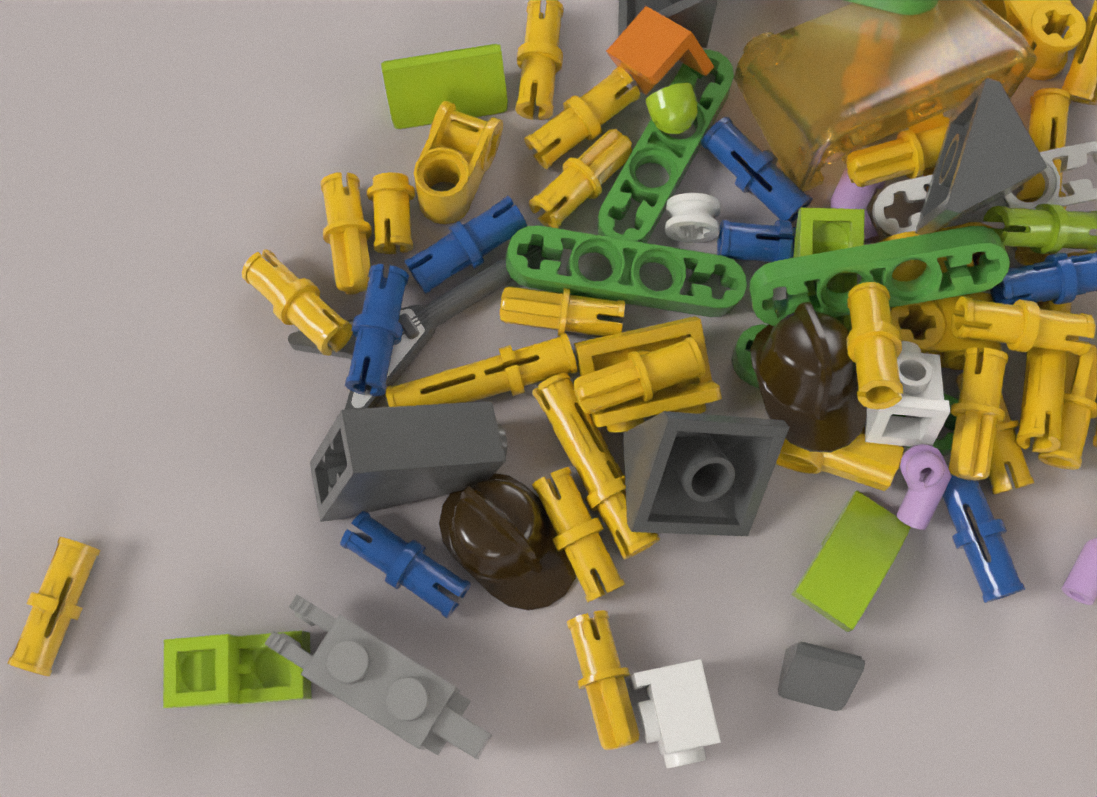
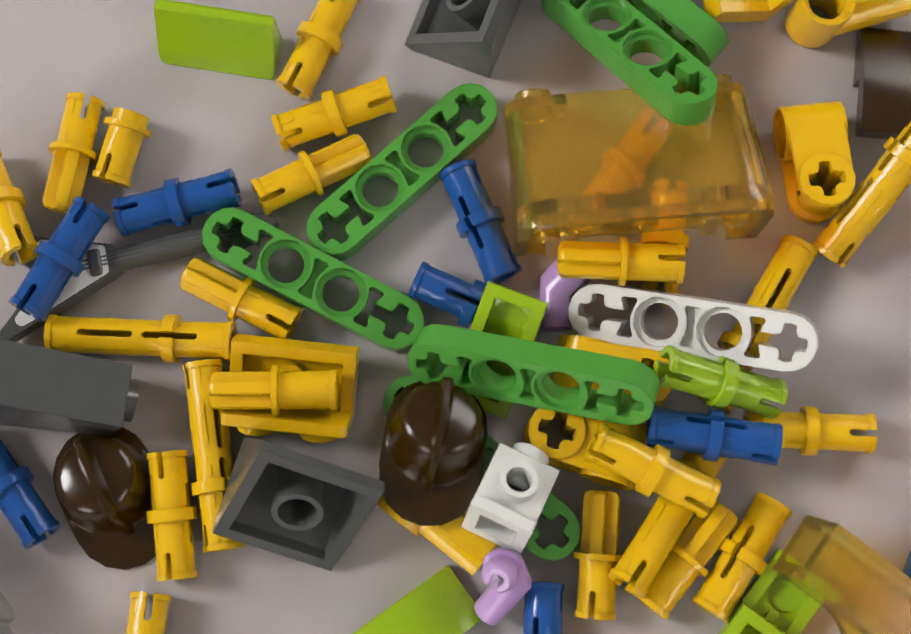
camera: 25 degrees right, 5 degrees up
(457, 153) = (205, 106): yellow piece -> none
(653, 47) = (418, 70): orange panel -> none
(673, 108) = (416, 137): lime hinge -> none
(692, 217) = (398, 249): white bush -> none
(874, 346) = (489, 444): yellow pin -> none
(977, 413) = (576, 538): yellow axle -> none
(980, 158) = (655, 307): dark grey slope -> none

